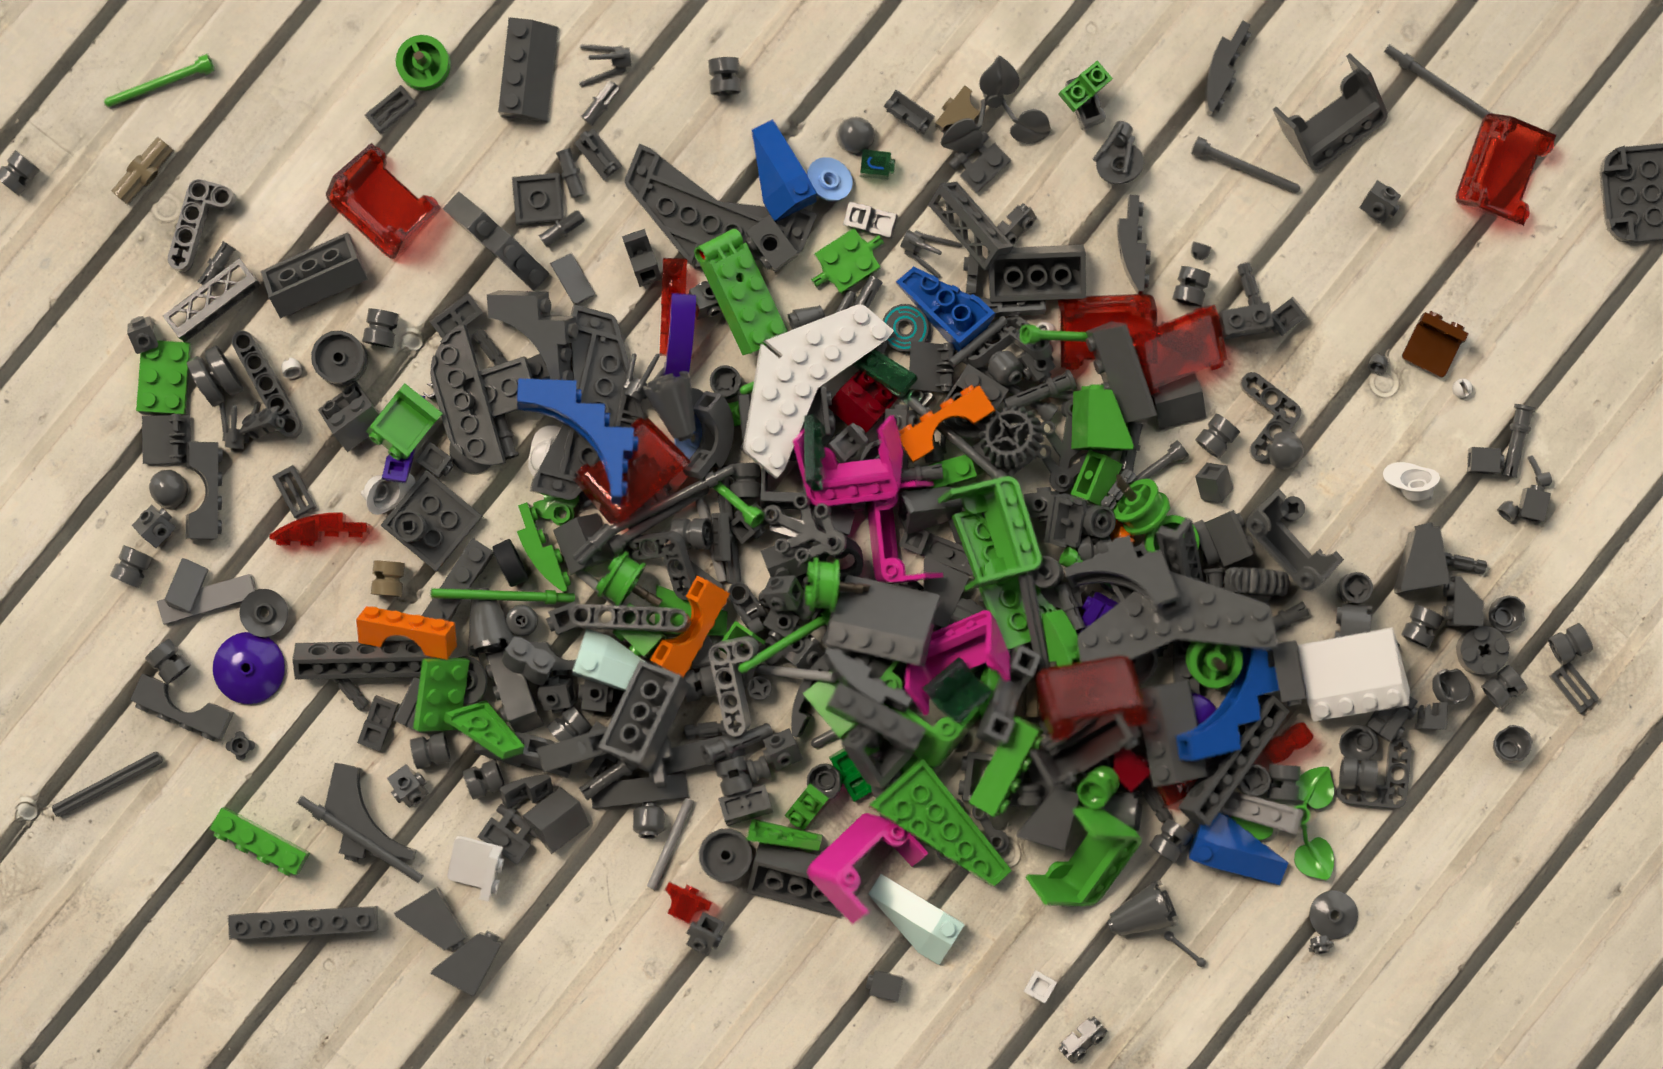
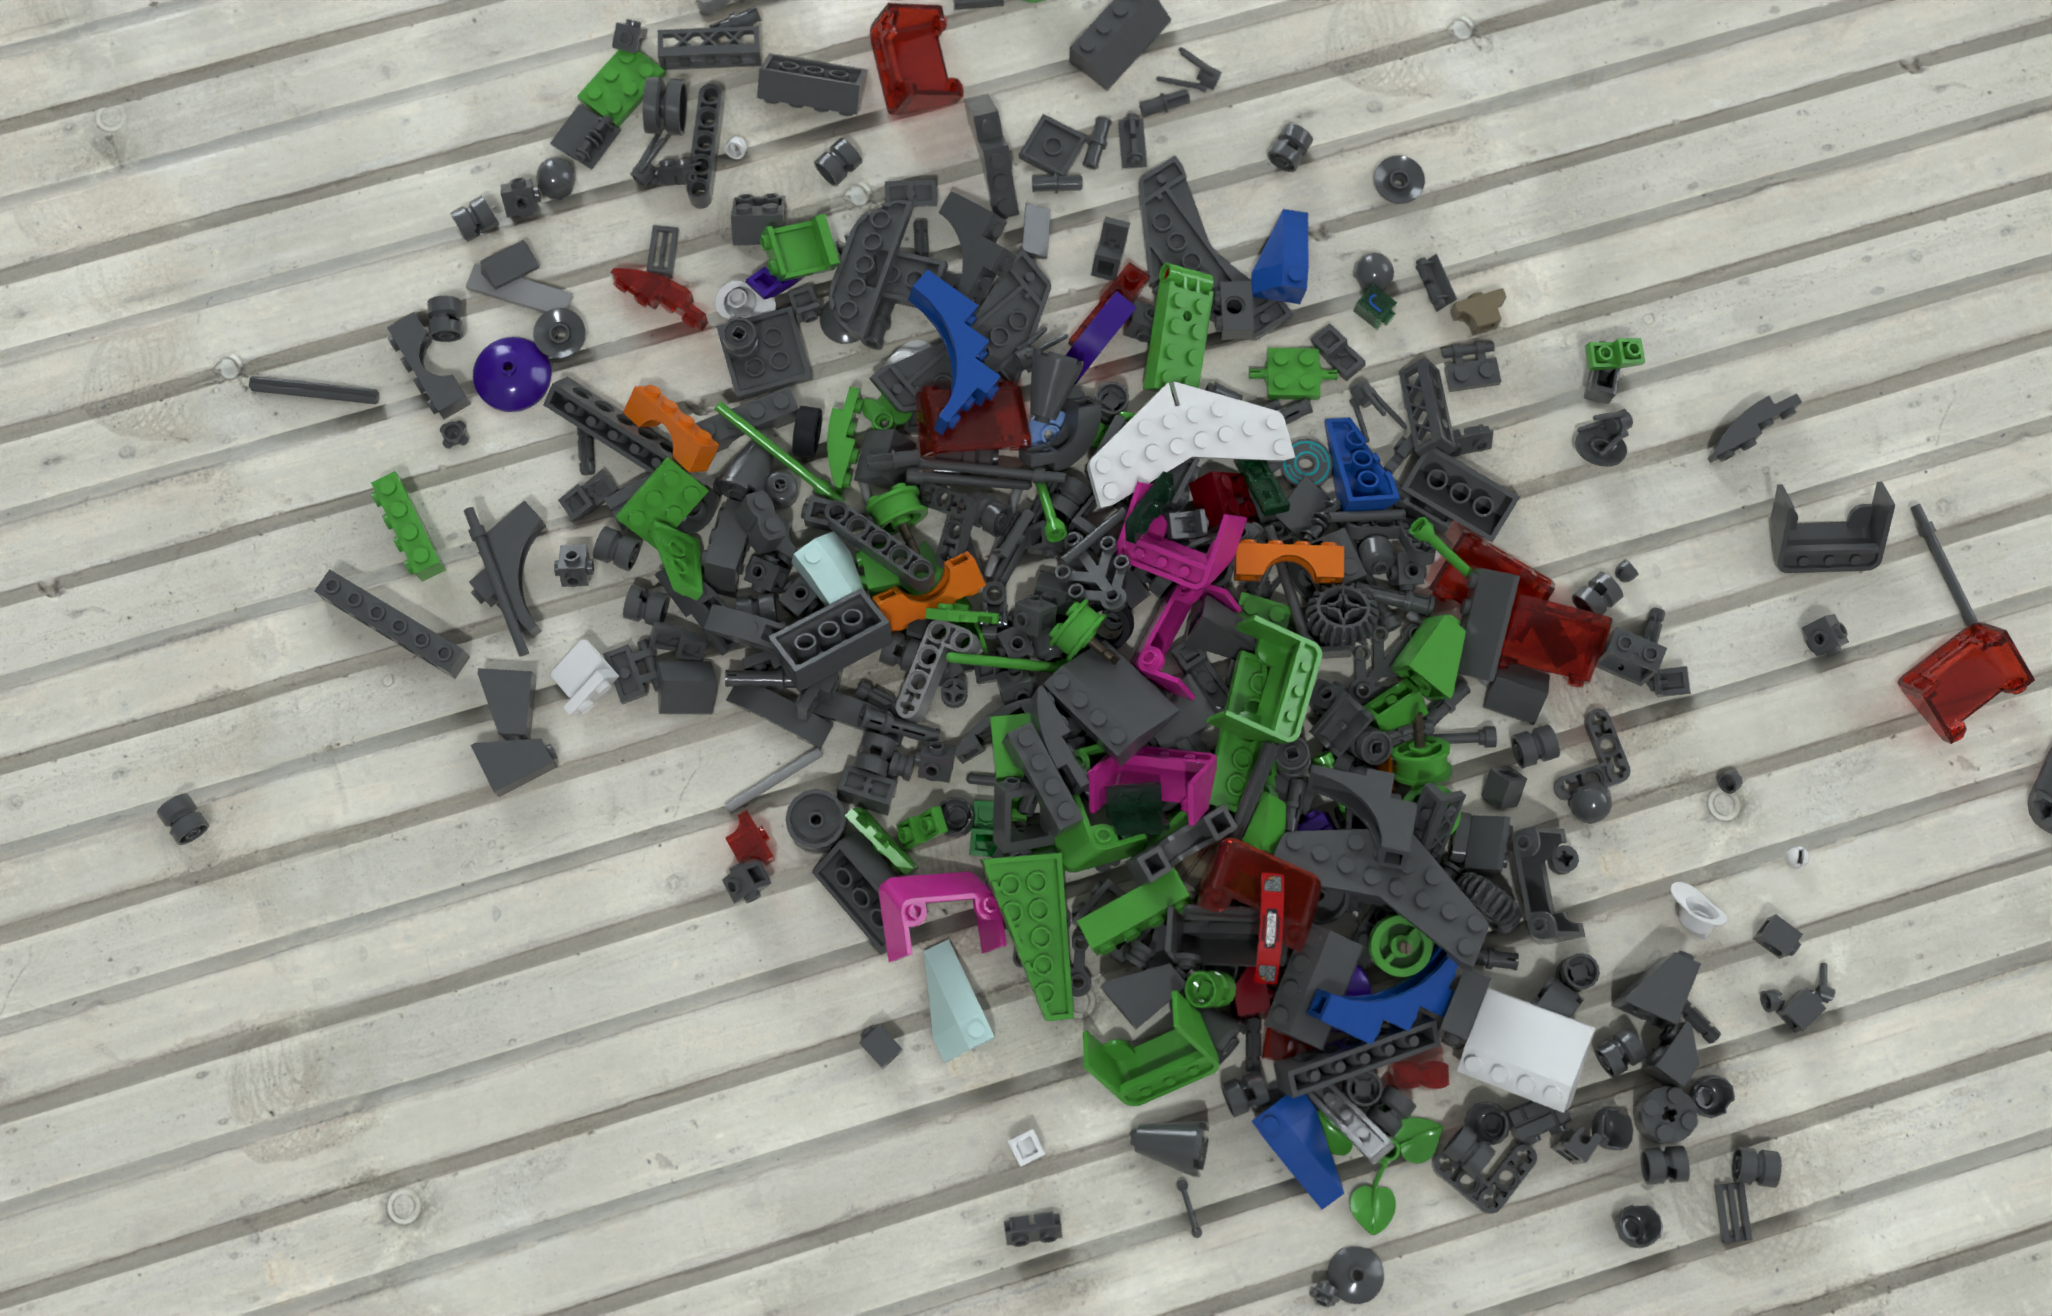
camera: 30 degrees right, 10 degrees down
(204, 459) = (565, 220): dark grey arch -> none
(327, 350) = (783, 162): dark grey wheel -> none
(387, 578) = (689, 375): dark tan wheel -> none
(648, 820) = (768, 744): dark grey head -> none
(726, 629) = (960, 613): none -> bright green wing
(786, 501) = (1094, 536): none -> dark grey bar
(796, 673) = (997, 697): light grey bar -> none
(829, 33) = (1403, 170): none -> dark grey dish
(835, 174) = (1325, 292): light blue dish -> none
(922, 473) = (1240, 594): dark grey pin -> none
(994, 82) = (1536, 293): dark grey plant -> none
(1115, 721) = (1270, 928): none -> sticker
(1133, 254) = (1563, 527): dark grey slope -> none
(1202, 148) = (1686, 485): dark grey piece -> none
(1434, 343) = (1797, 797): reddish brown bracket -> none
(1519, 429) = (1830, 930): dark grey pin -> none

